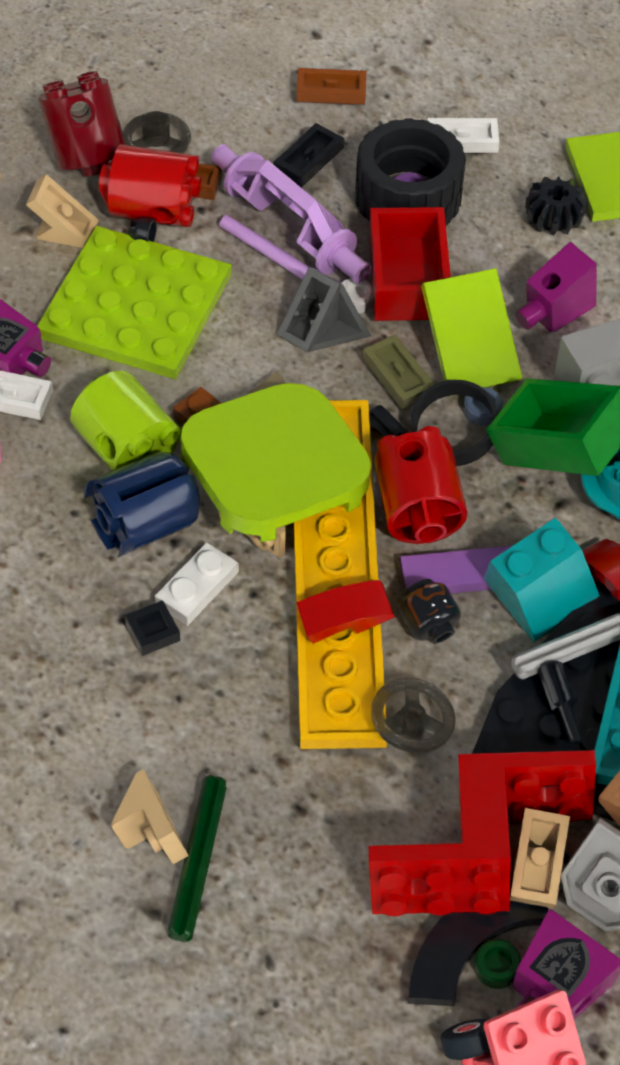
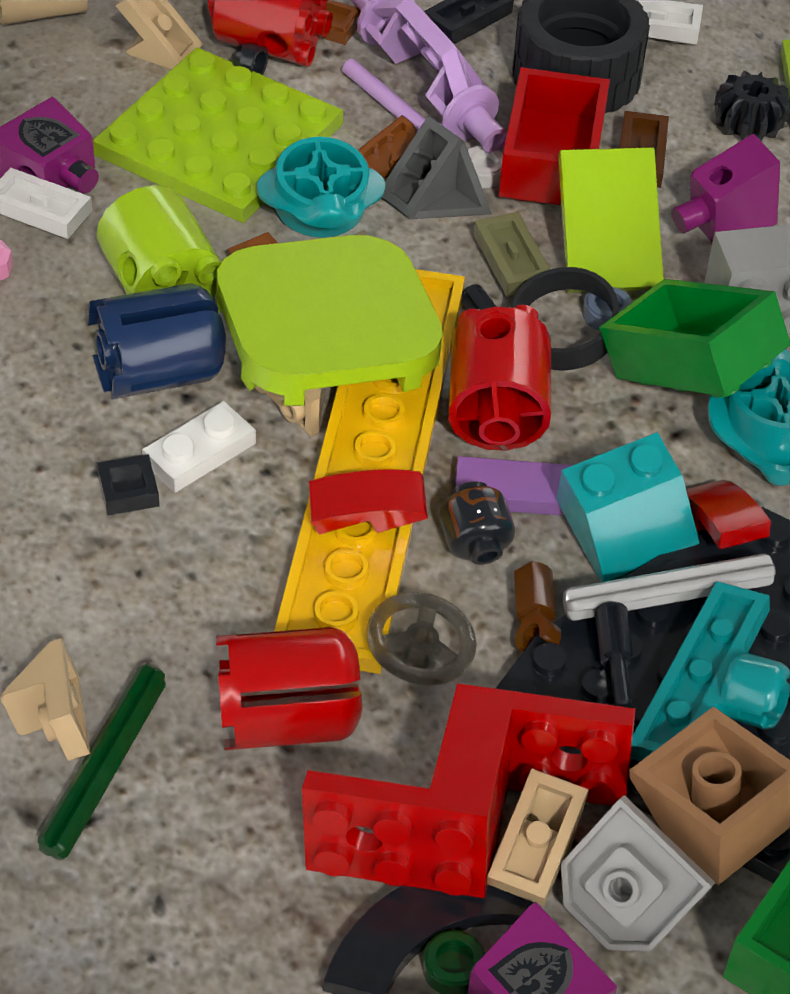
camera: 10 degrees right, 5 degrees down
(231, 347) = (321, 187): none -> teal piece
(274, 295) = (388, 146): none -> dark orange tile
(326, 776) = (289, 687): none -> red cylinder
(477, 249) = (646, 131): none -> reddish brown plate
(489, 670) = (535, 604): none -> reddish brown bar

